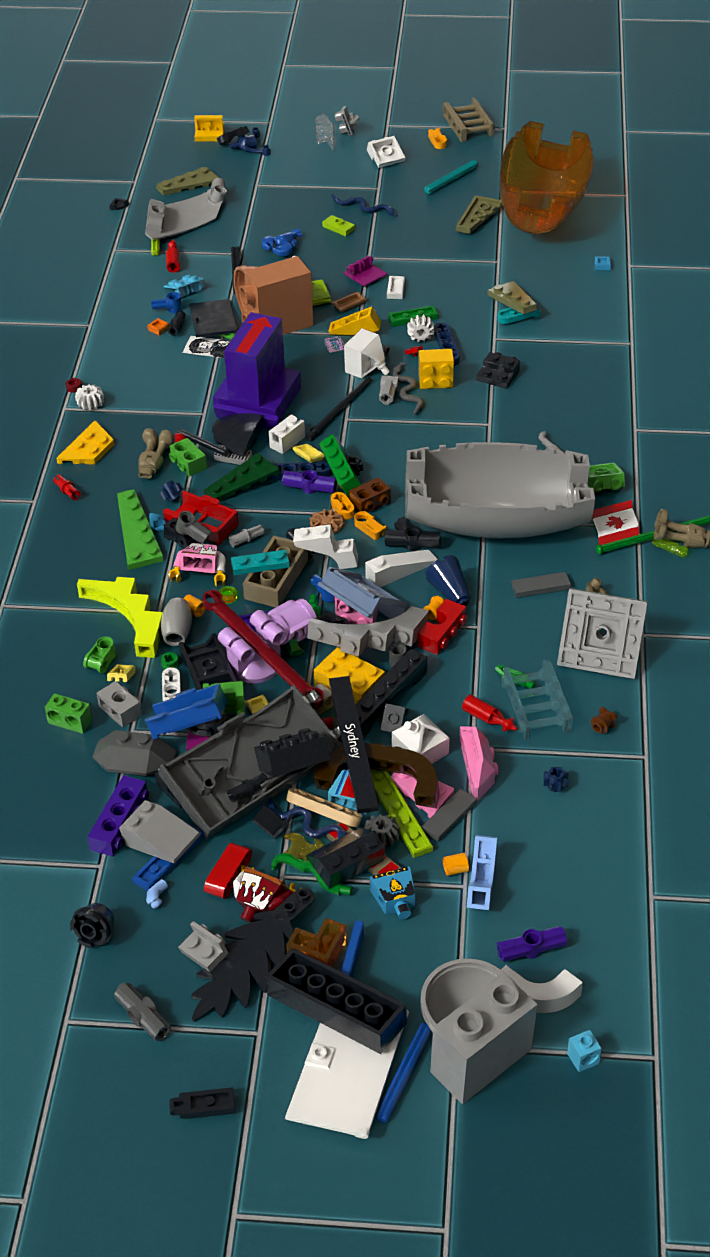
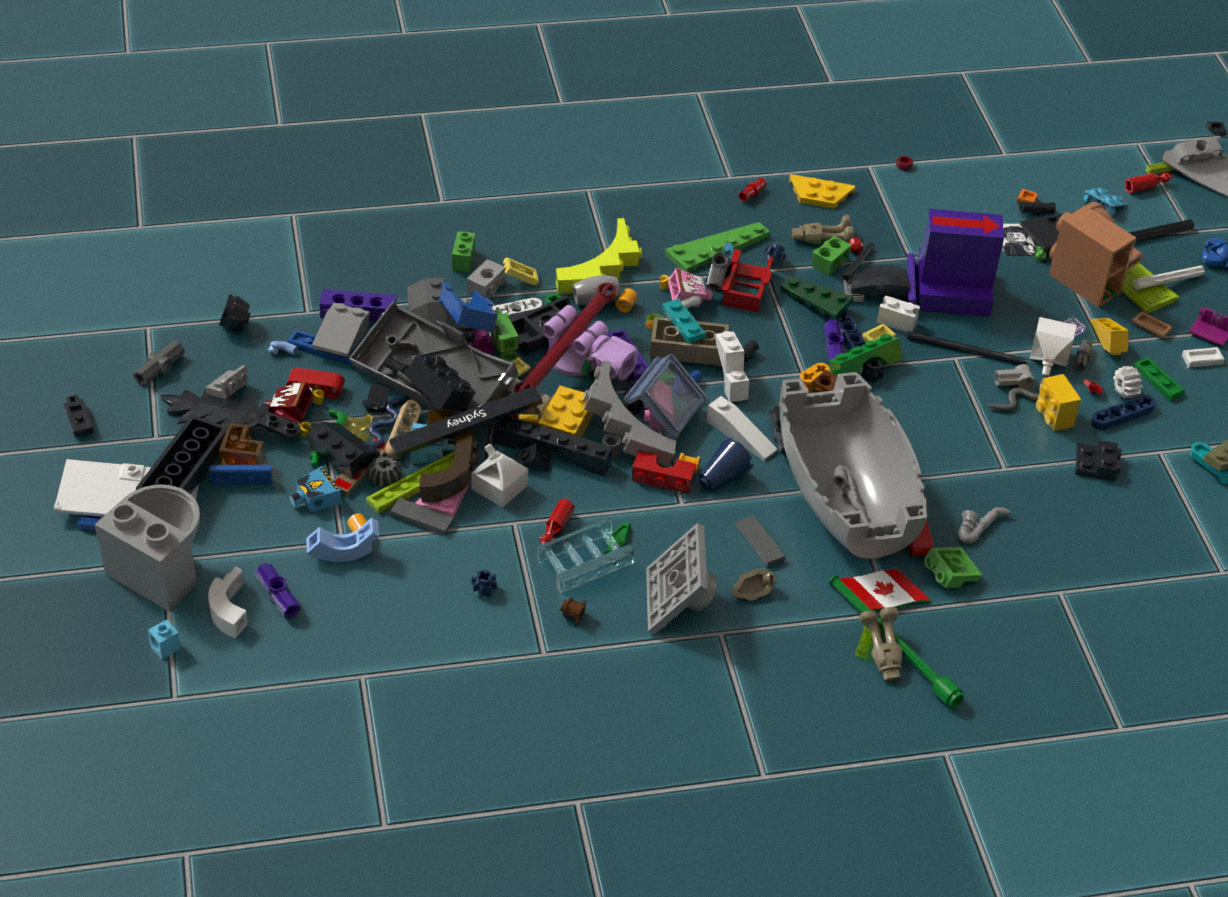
camera: 70 degrees right, 0 degrees up
(89, 397) = (886, 174): white gear -> none
(100, 655) = (543, 257): bright green piece -> none
(172, 302) = (1066, 195): blue axle -> none
(246, 535) = (738, 317): light grey axle -> none
(332, 519) = (784, 369): medium nougat wheel -> none
(478, 760) = (486, 520): bright pink wedge -> none

